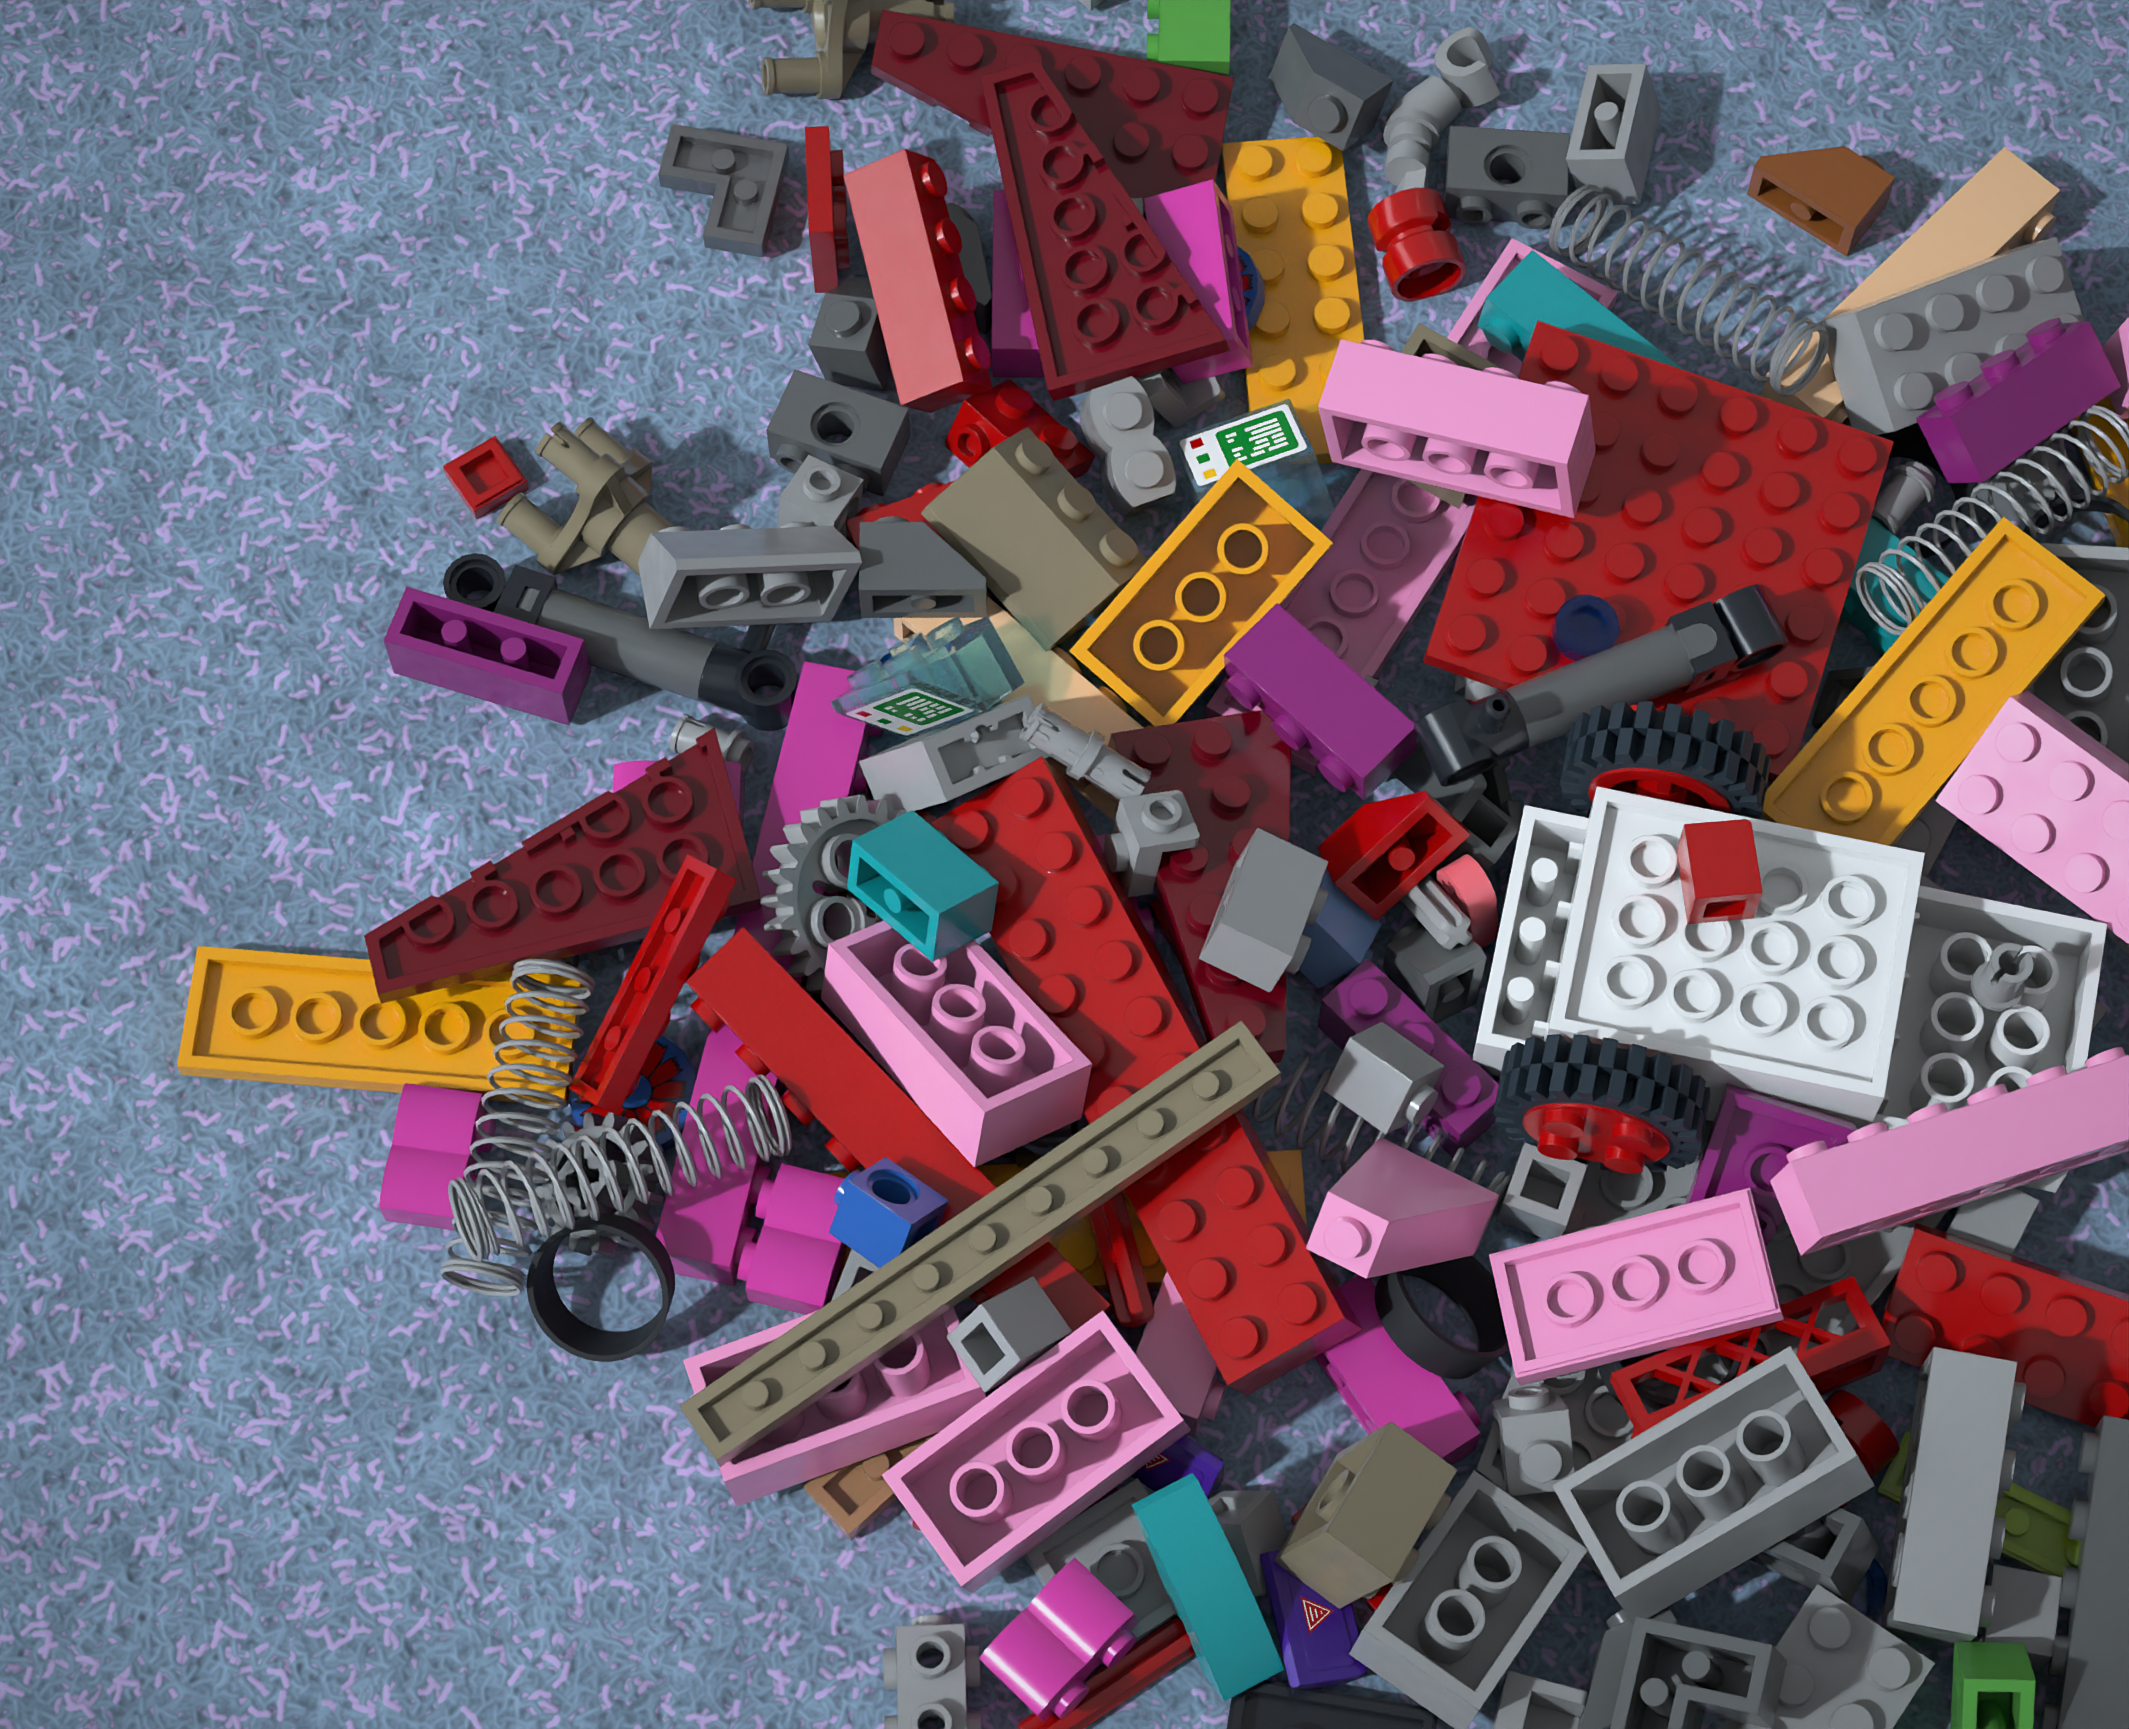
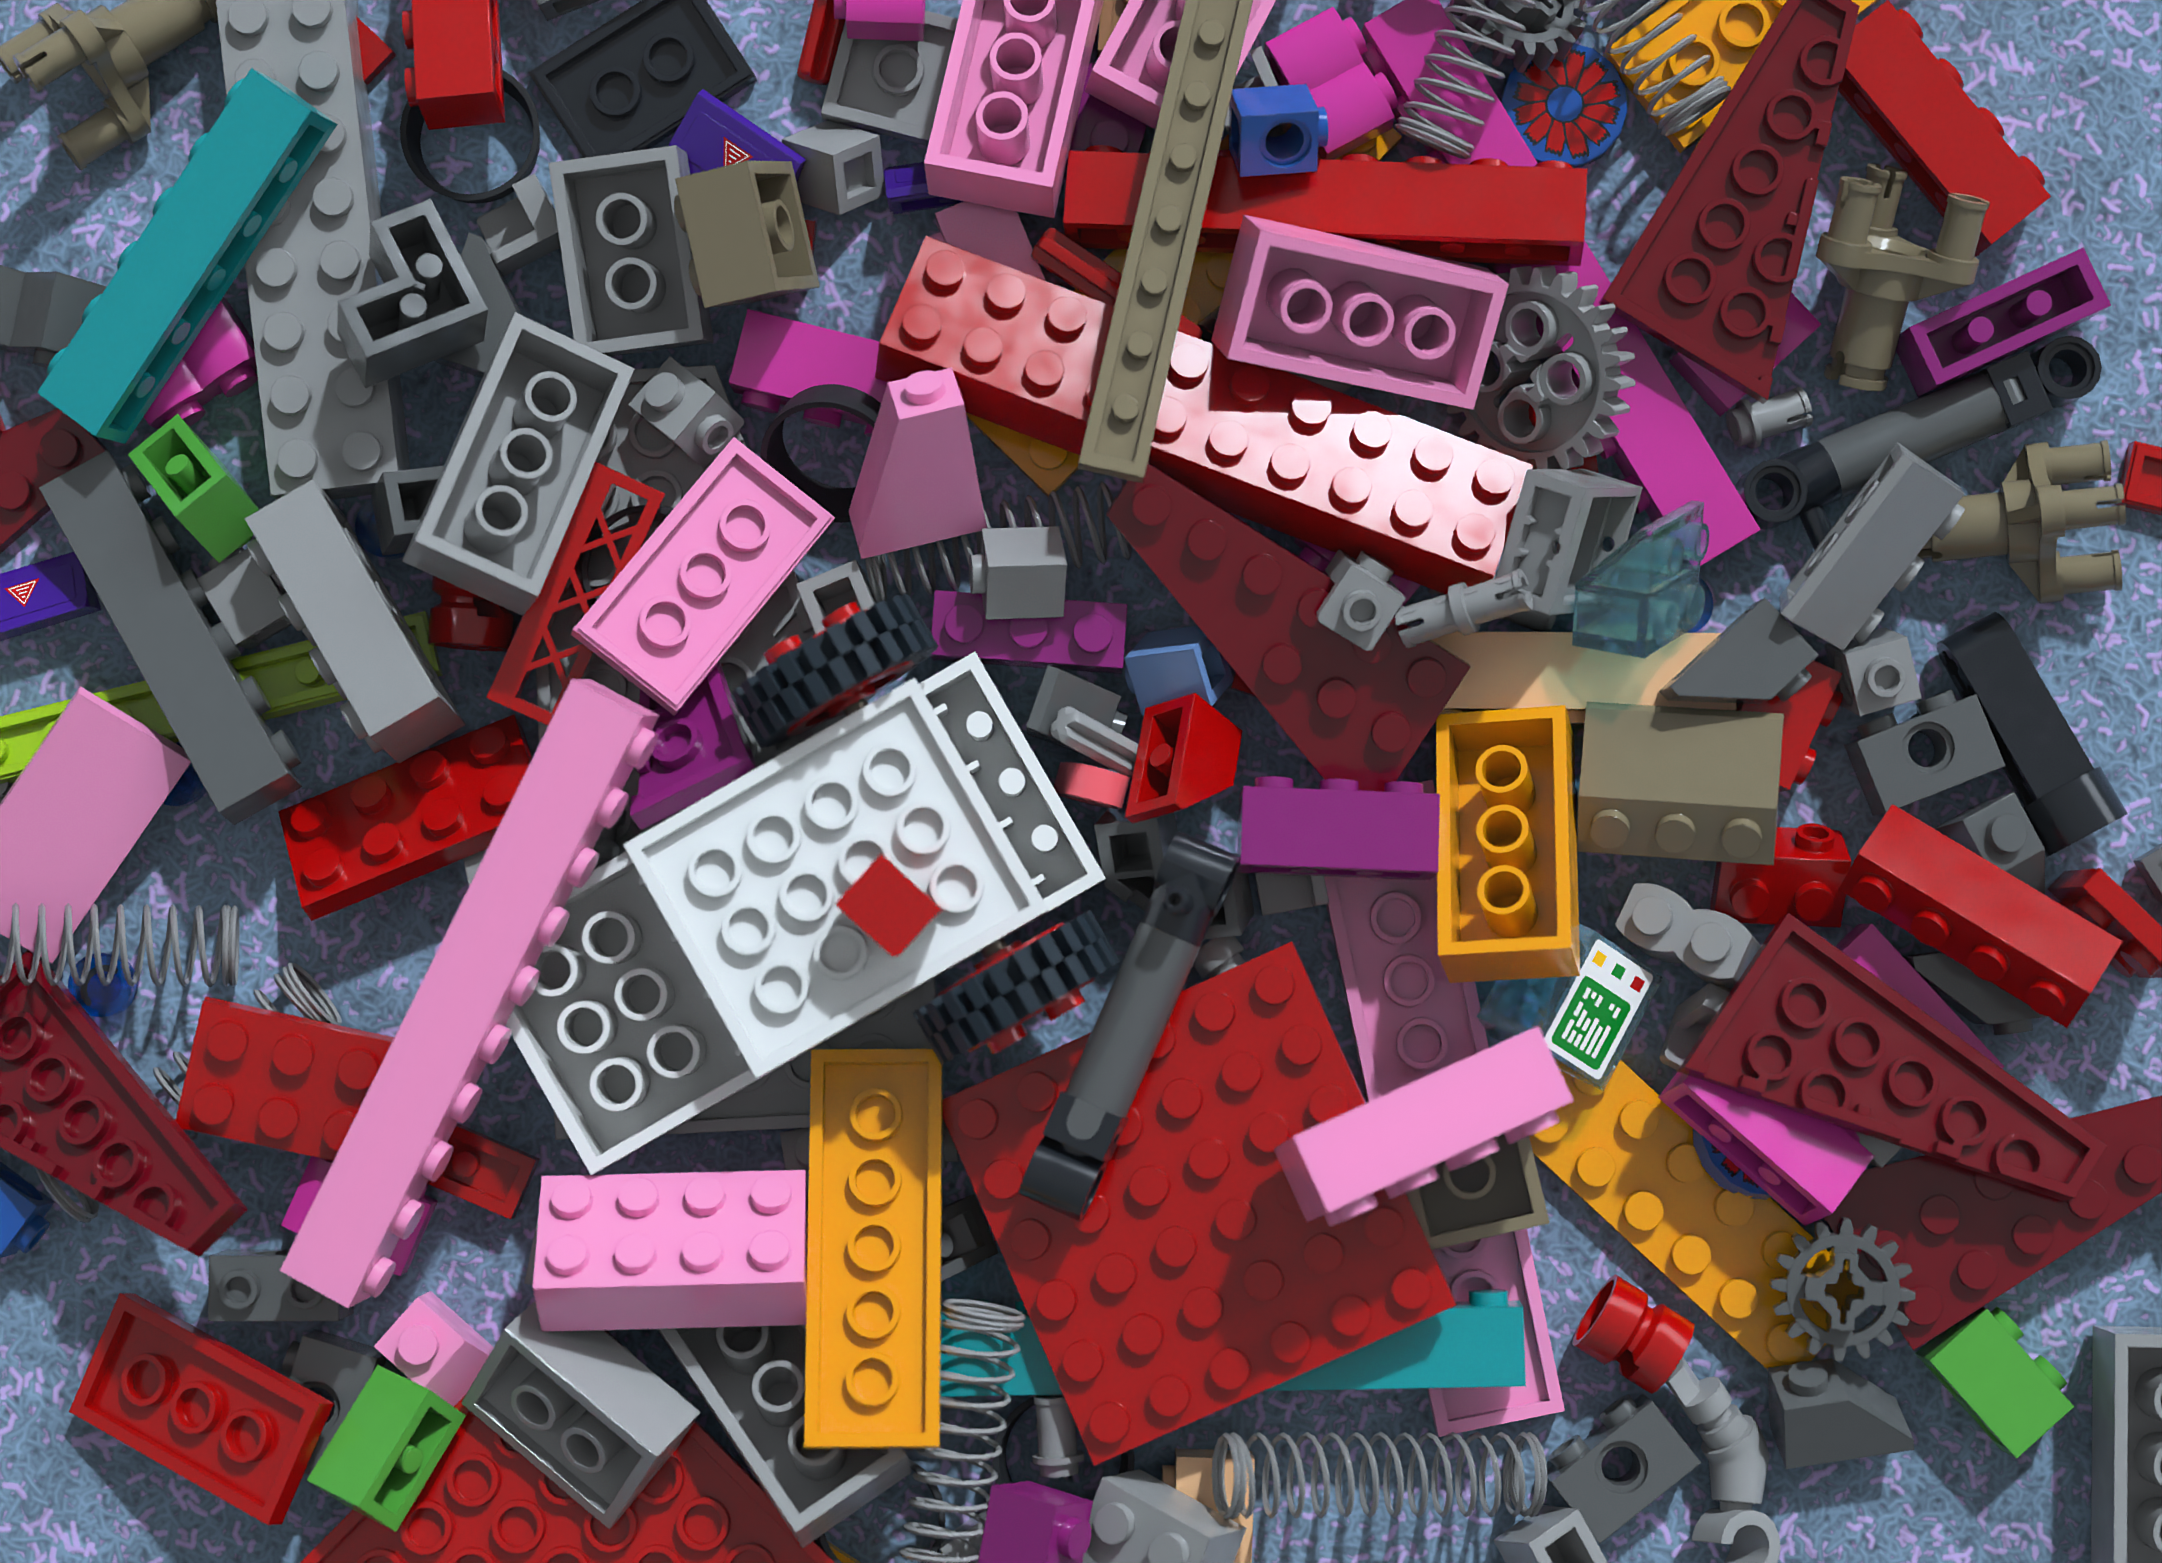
camera: 135 degrees right, 20 degrees up
(391, 819) = (1932, 124): none -> red brick
(531, 748) = (1888, 271): none -> dark tan wheel
(653, 984) = (1614, 159): red plate -> none
(770, 329) = (2040, 752): none -> black beam
(922, 885) = (1485, 396): teal brick -> none
(1008, 1333) = (1105, 121): light grey brick -> none
(1207, 1587) = (815, 91): teal slope -> none
(1246, 121) = (1870, 1292): none -> dark grey gear
(1265, 911) = (1214, 602): light grey brick -> none
(1585, 627) = (1186, 1068): clear blue tile -> none
(2011, 976) = (640, 1039): light grey pin -> none

